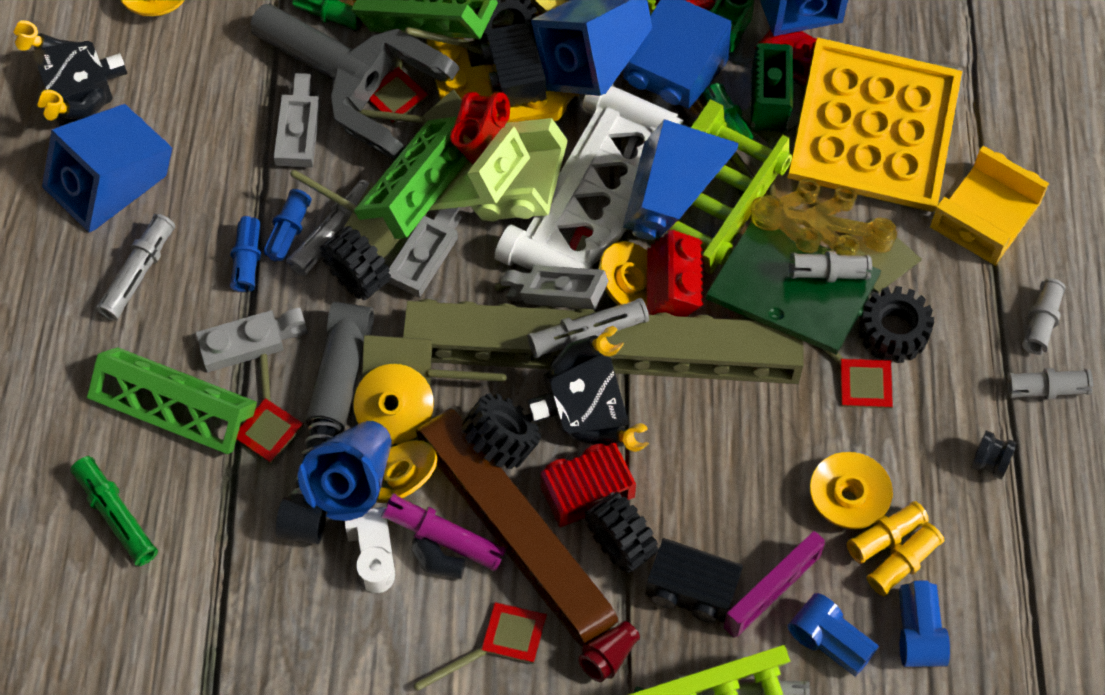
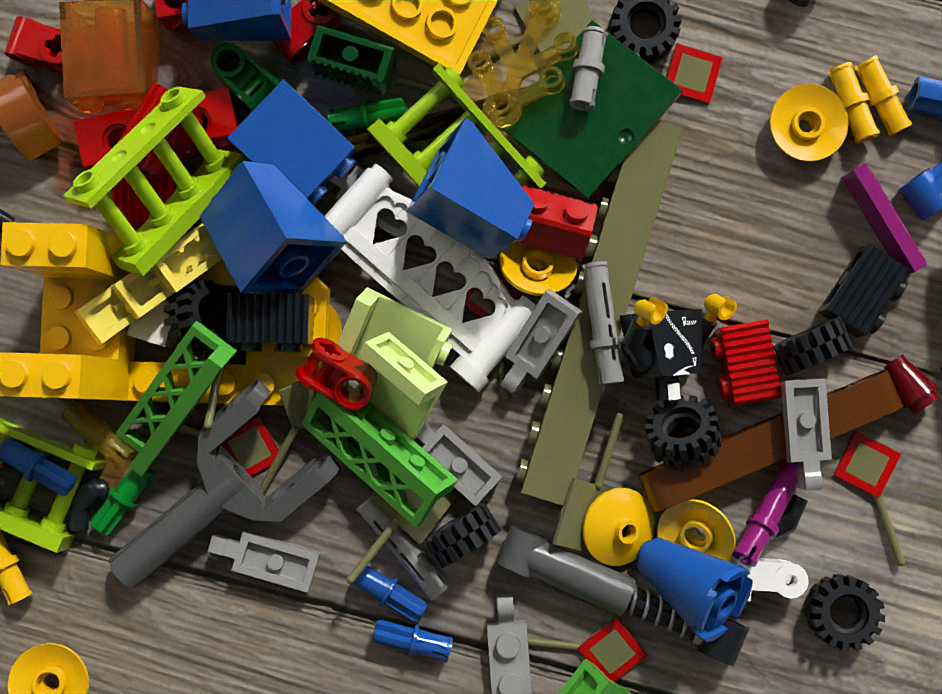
camera: 75 degrees left, 25 degrees up
(348, 610) = (868, 612): none -> black tyre
(533, 533) = (806, 428): none -> light grey plate

